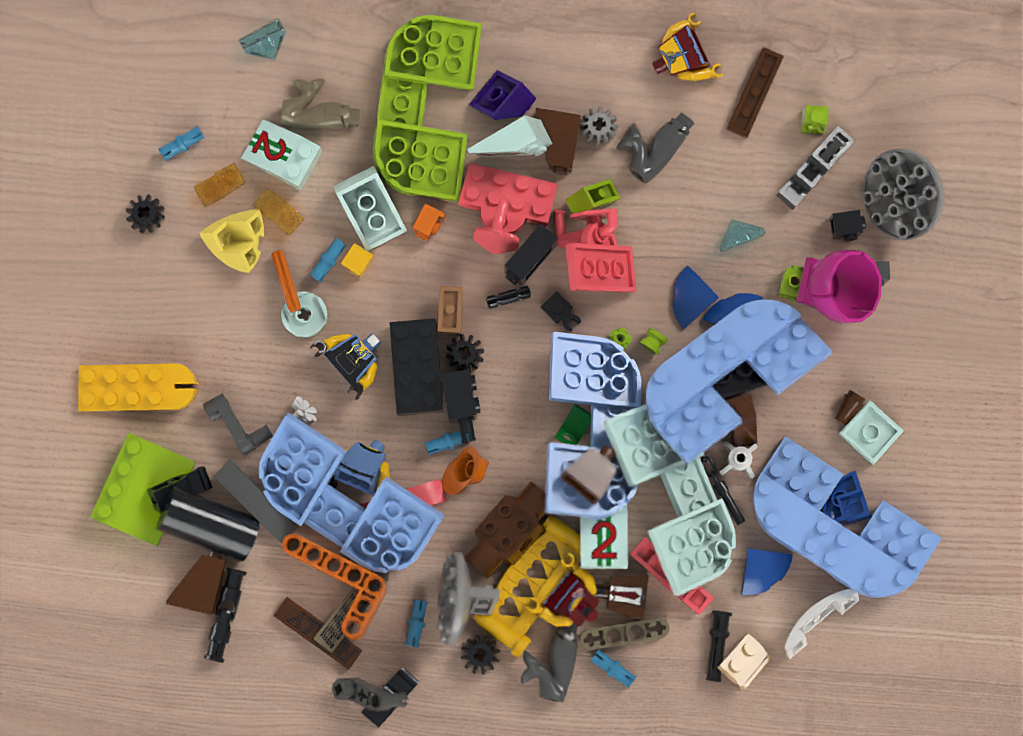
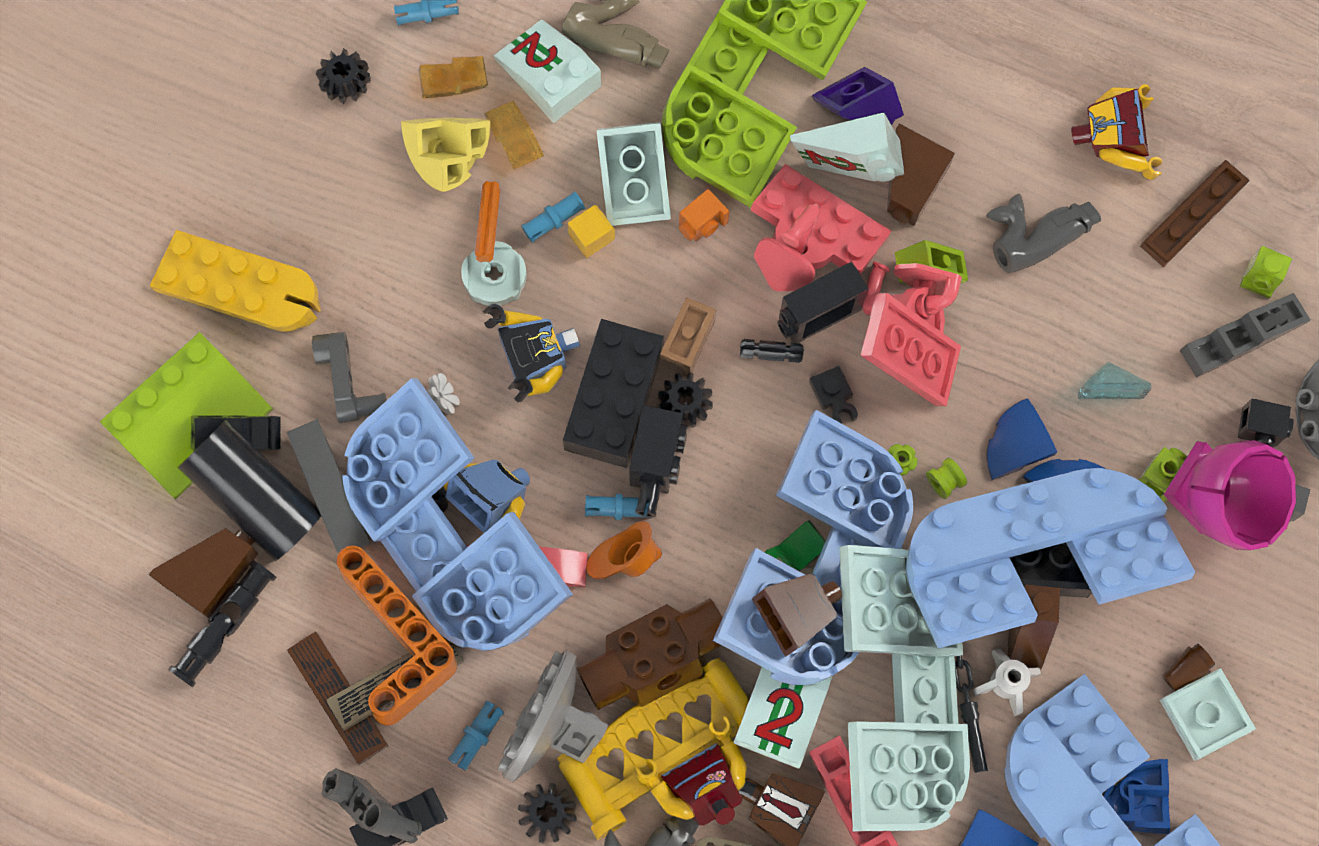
camera: 20 degrees right, 10 degrees down
(592, 121) = (974, 167): light grey gear -> none

